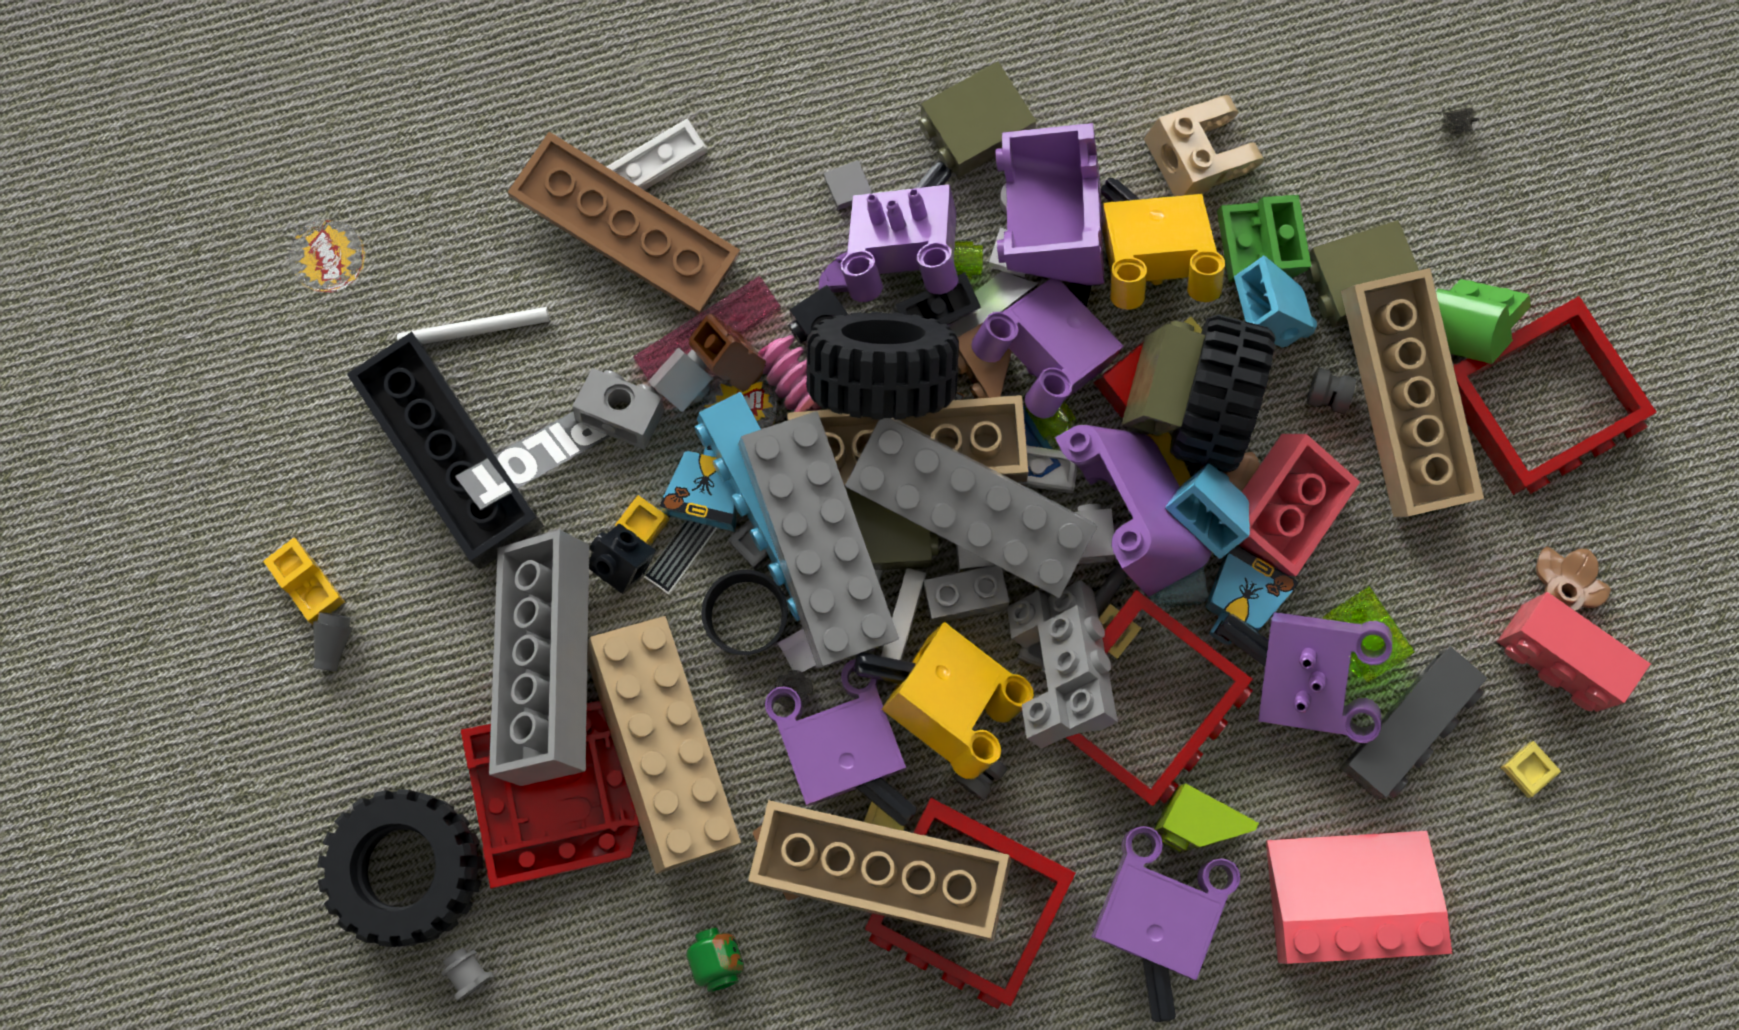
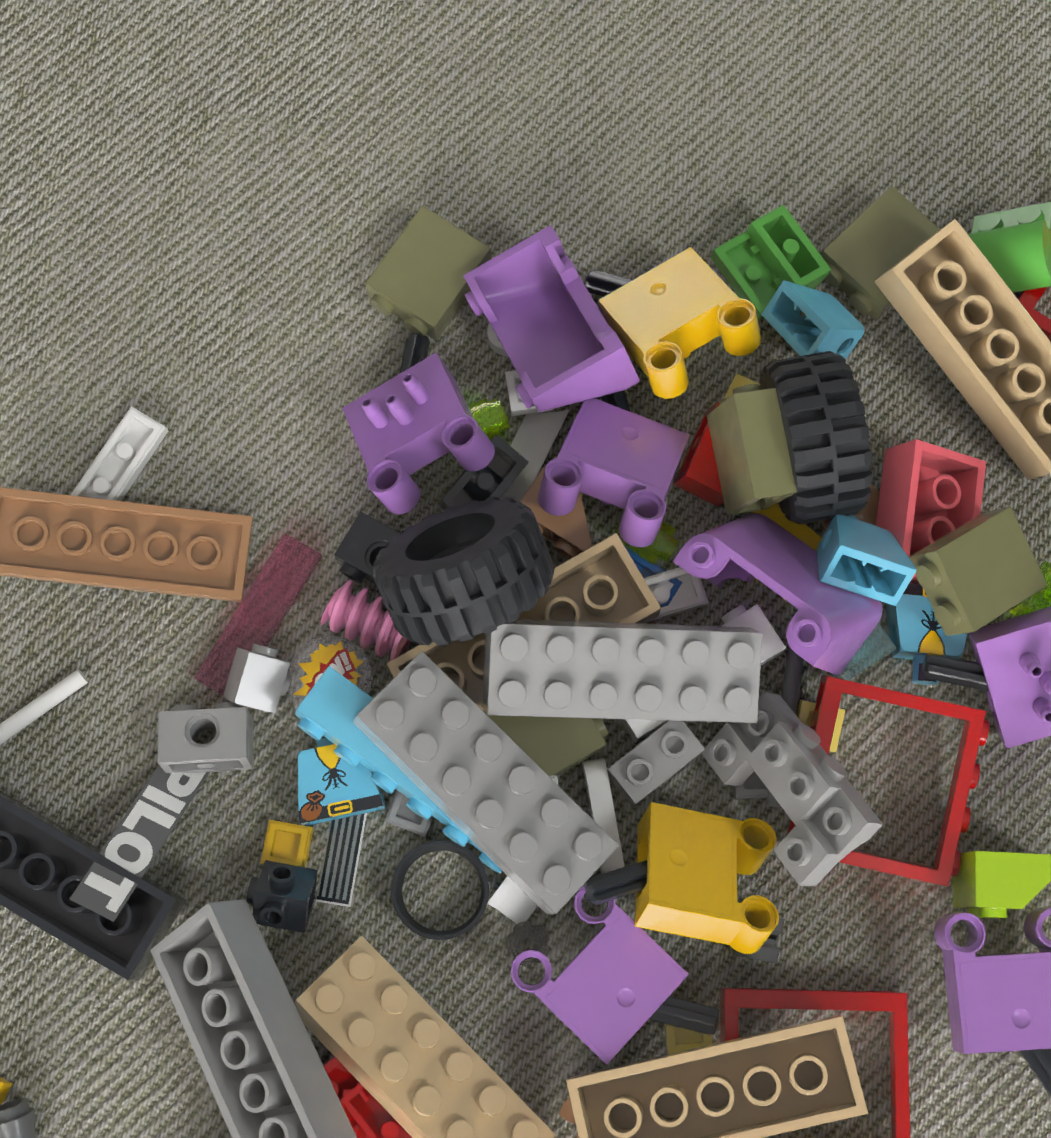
camera: 30 degrees left, 0 degrees up
(727, 353) = (292, 630): reddish brown brick -> none
(833, 276) = (361, 497): medium lavender tile -> none
(846, 182) = (328, 397): light grey tile -> none
(1186, 154) = (654, 214): tan brick -> none
(1303, 565) = (978, 571): none -> olive brick
(1331, 391) = (909, 383): dark grey wheel -> none
(1459, 120) = (897, 63): clear smoke plate -> none

